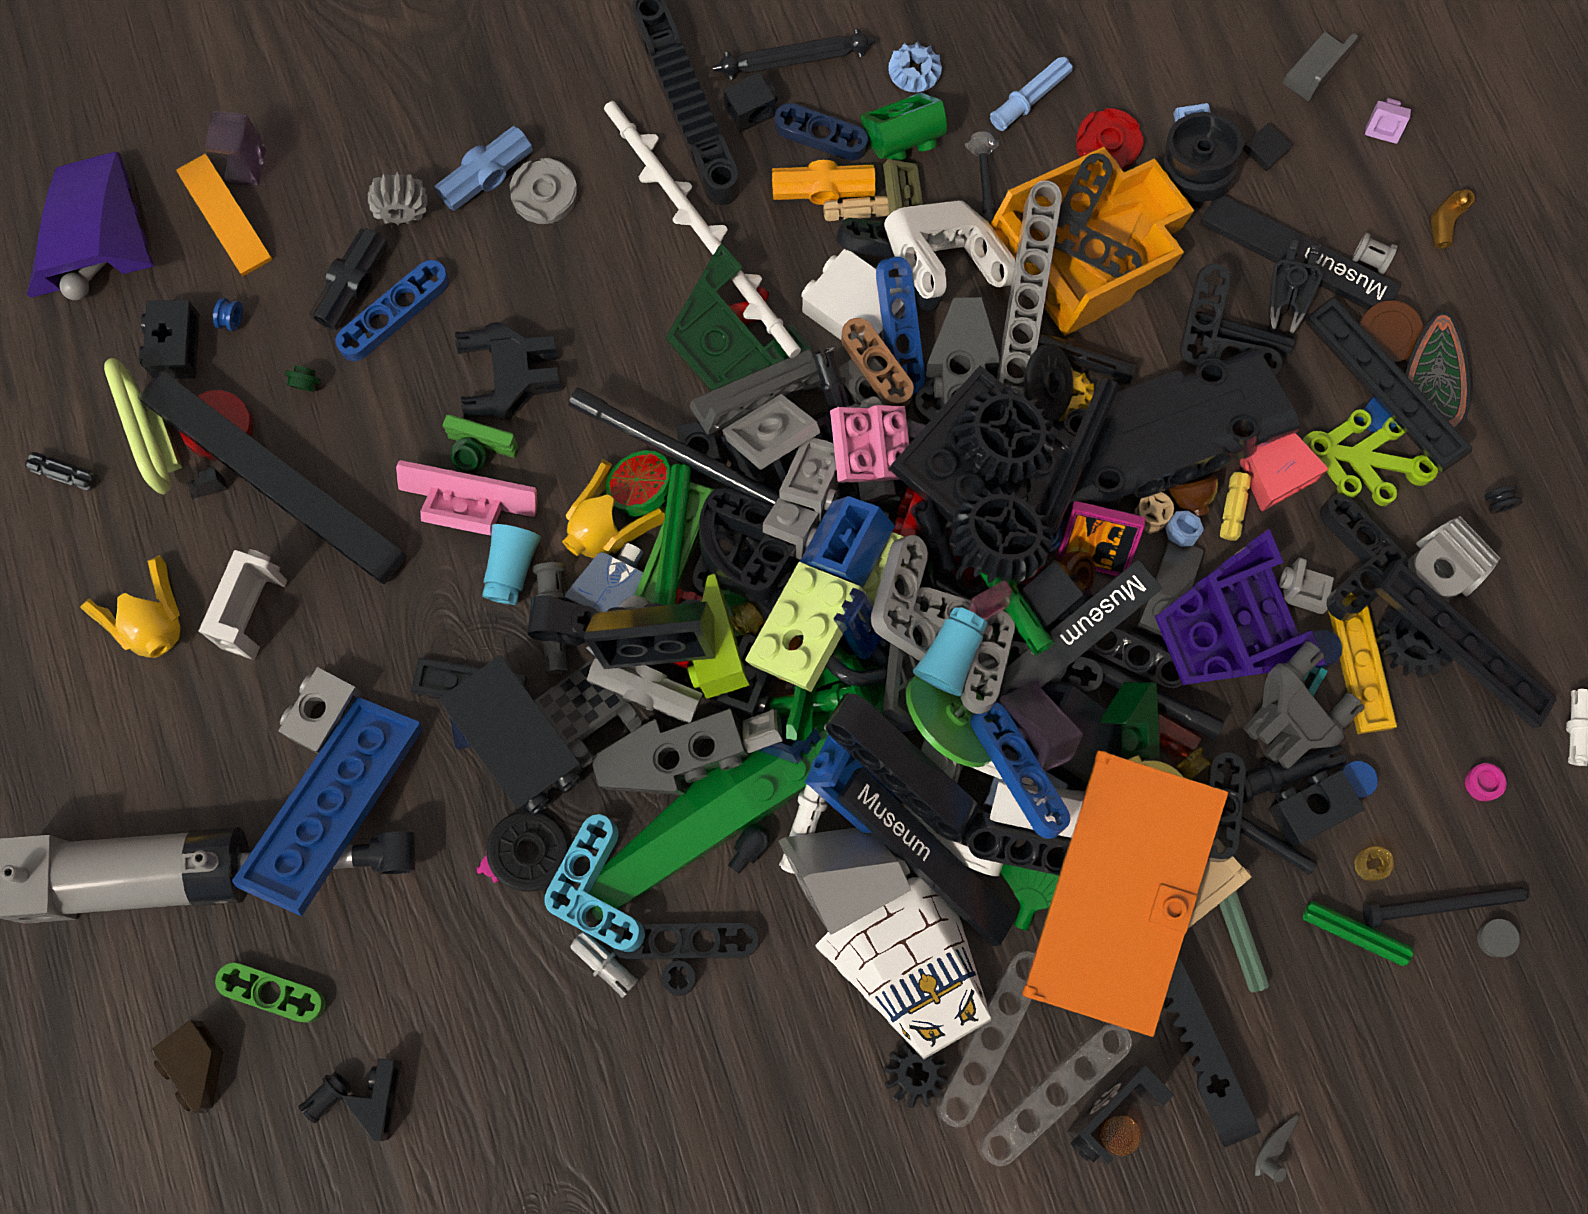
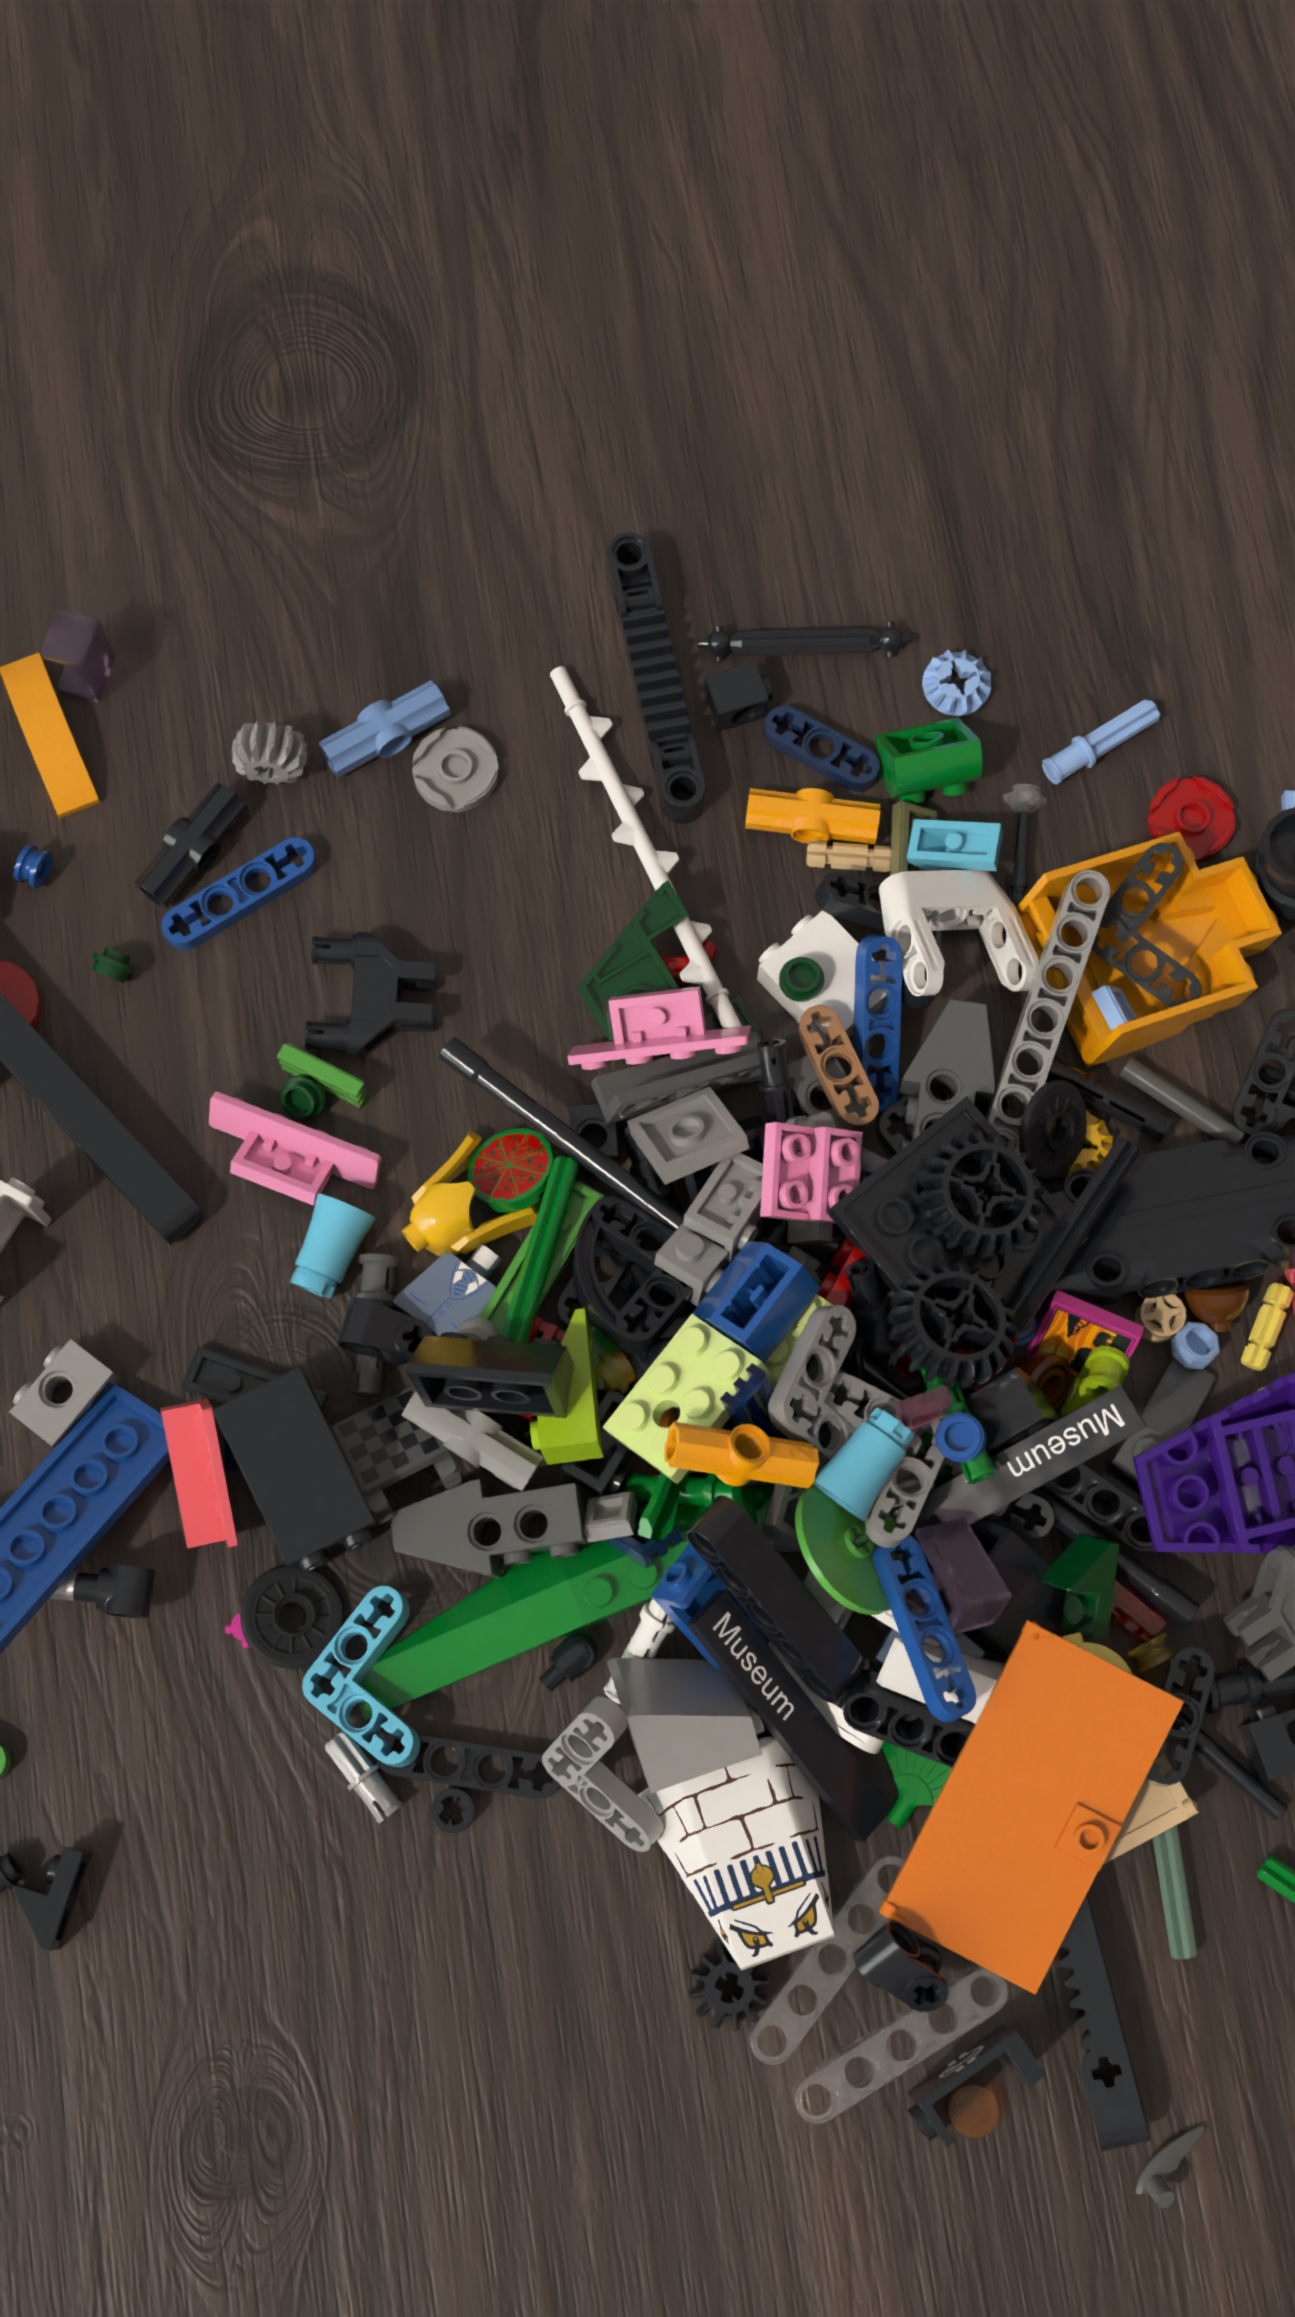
camera: 10 degrees right, 0 degrees up
(435, 753) = (198, 1473): none -> coral panel
(733, 353) = (658, 1025): none -> bright pink bracket
(812, 954) = (593, 1782): none -> light grey beam
(837, 301) = (801, 979): none -> dark green plate
(856, 659) = (760, 1459): none -> light orange piece
(936, 184) = (954, 845): none -> medium azure slope
(1022, 620) = (960, 1437): none -> blue tile
(1049, 1033) = (903, 1967): none -> black piece
(1076, 283) = (1113, 1005): none -> light blue tile
(1118, 556) = (1101, 1372): none -> lime piece
(1138, 349) = (1180, 1102): none -> dark grey piece

